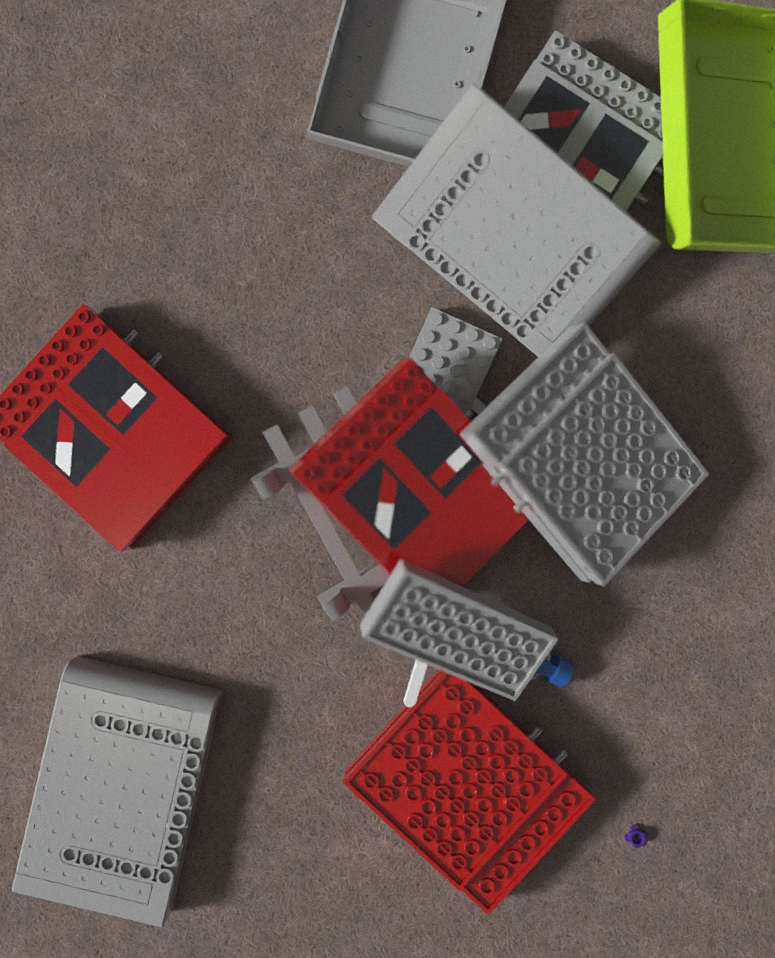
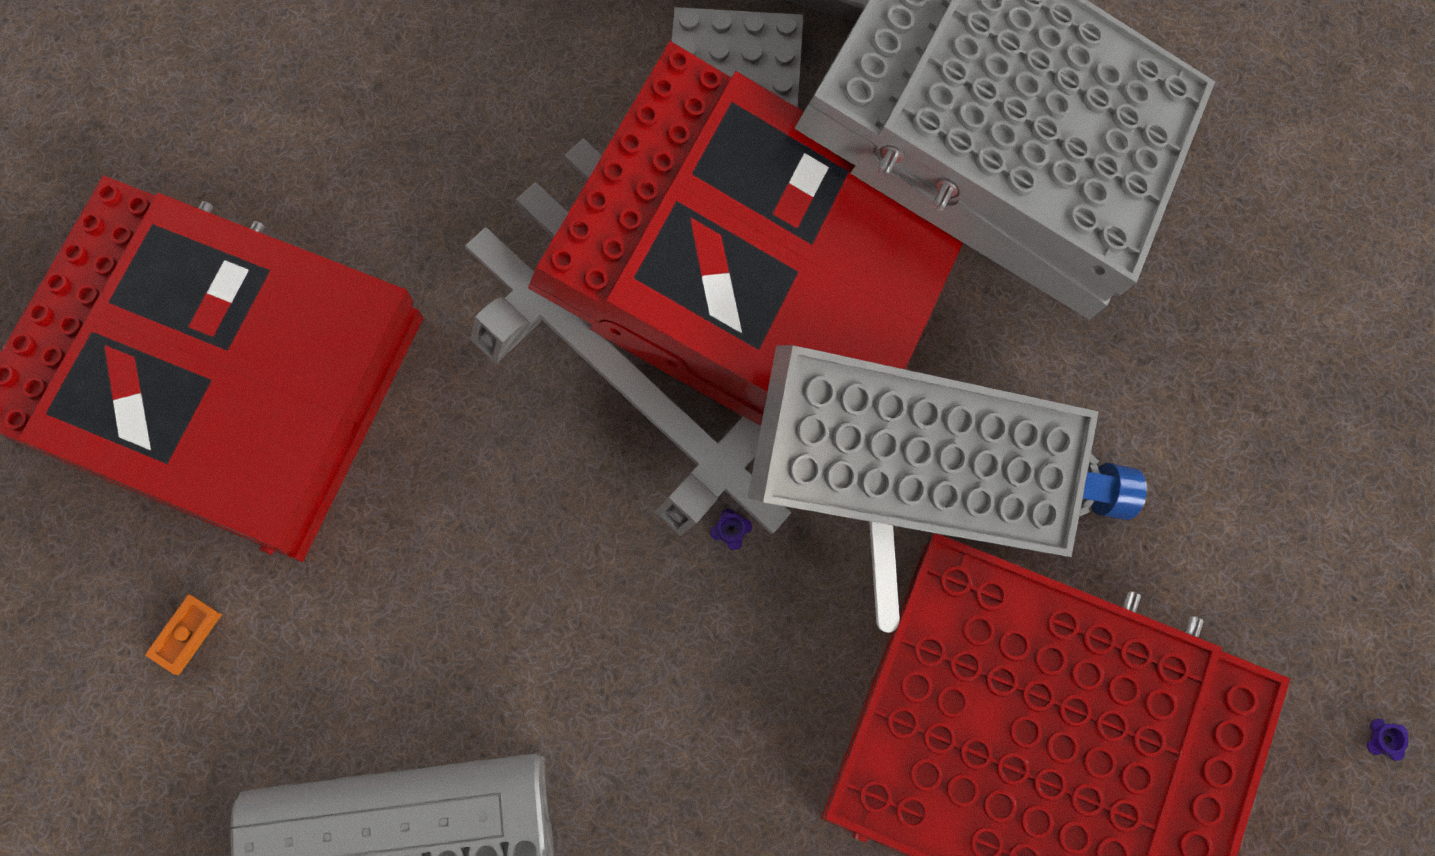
camera: 20 degrees left, 15 degrees down
(62, 566) = (183, 634): none -> orange plate
(354, 618) = (728, 519): none -> dark purple plate

